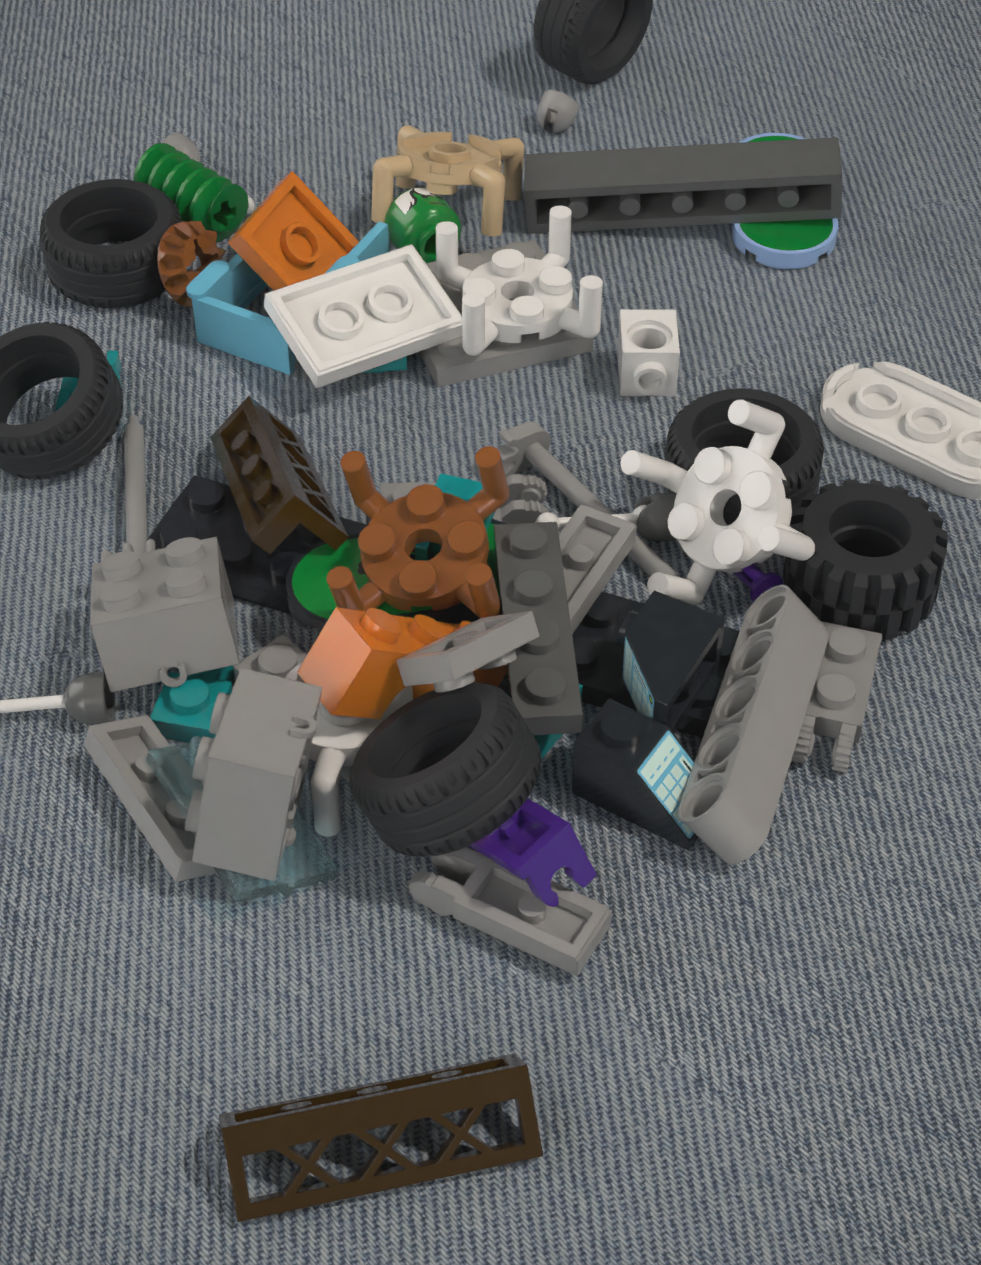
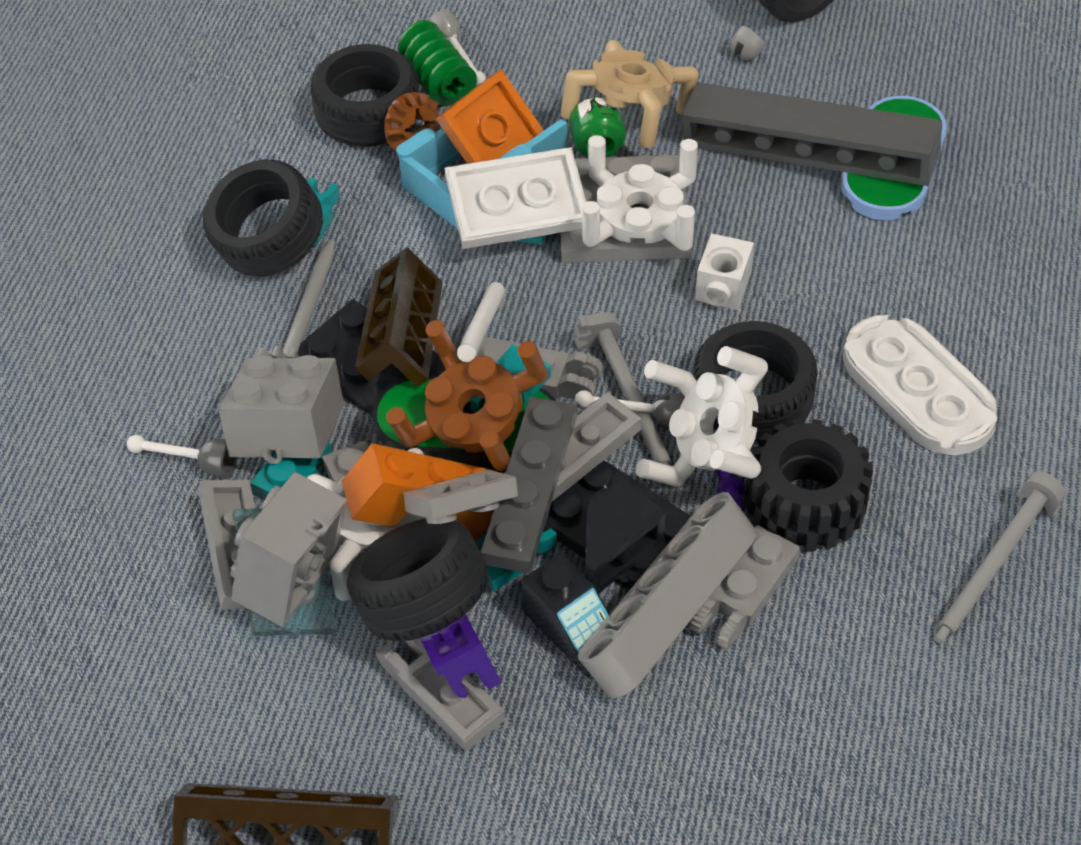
camera: 20 degrees right, 5 degrees up
(385, 460) = (480, 323): none -> white bar

